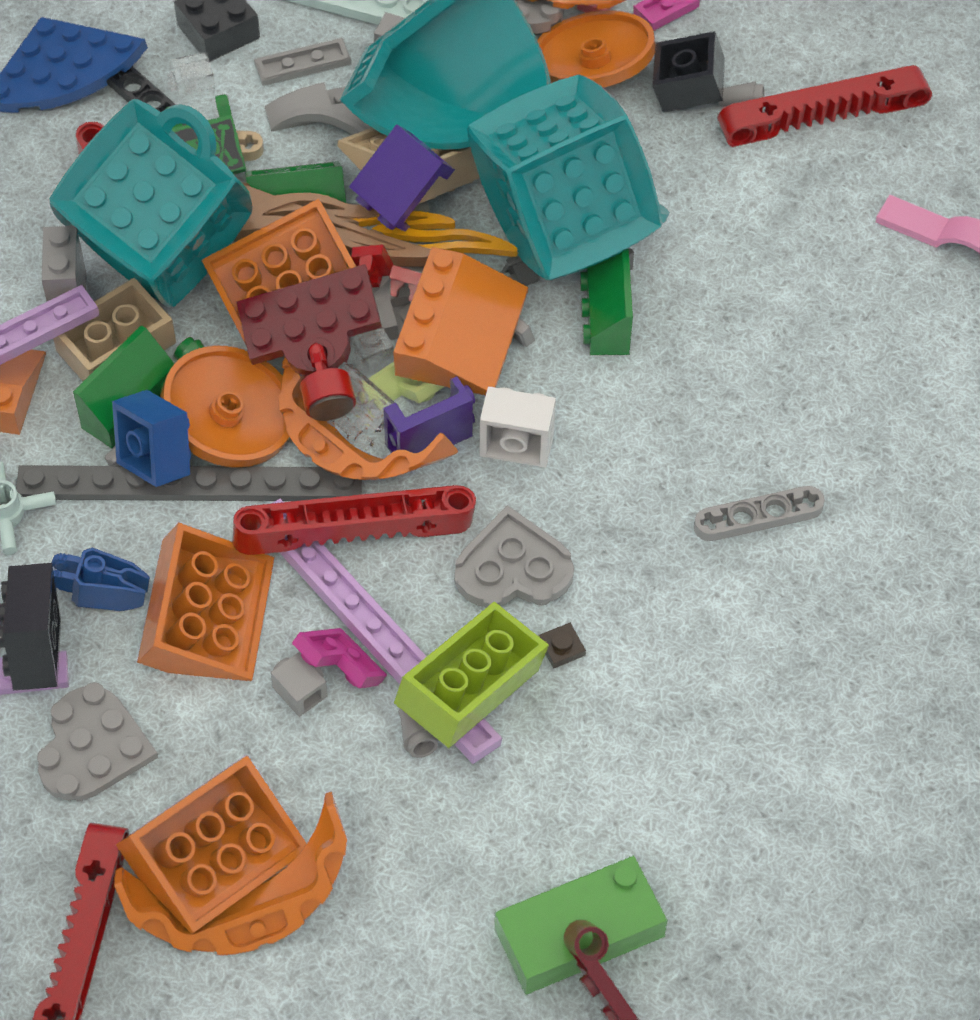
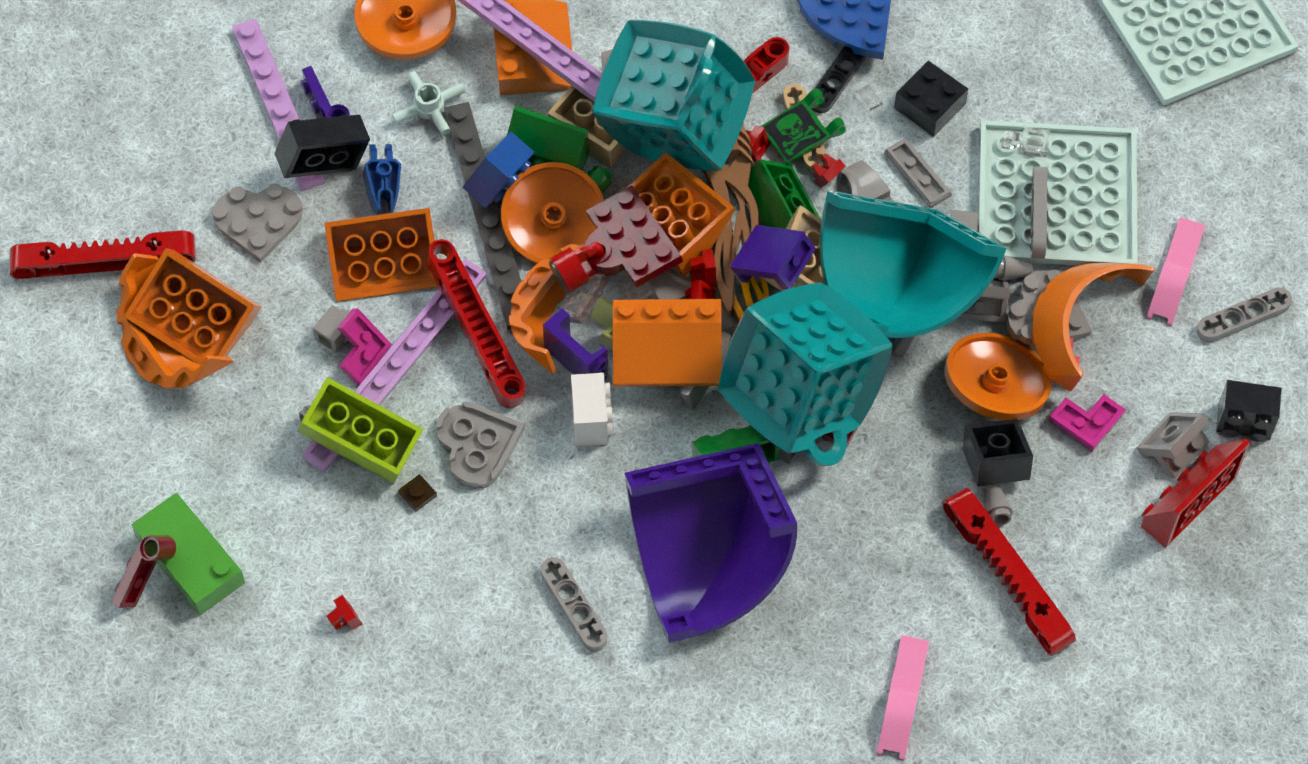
camera: 75 degrees right, 5 degrees up
(274, 133) = (830, 171): none -> red tile
(715, 758) = (343, 614): none -> red tile
(735, 334) = (710, 537): none -> dark purple panel

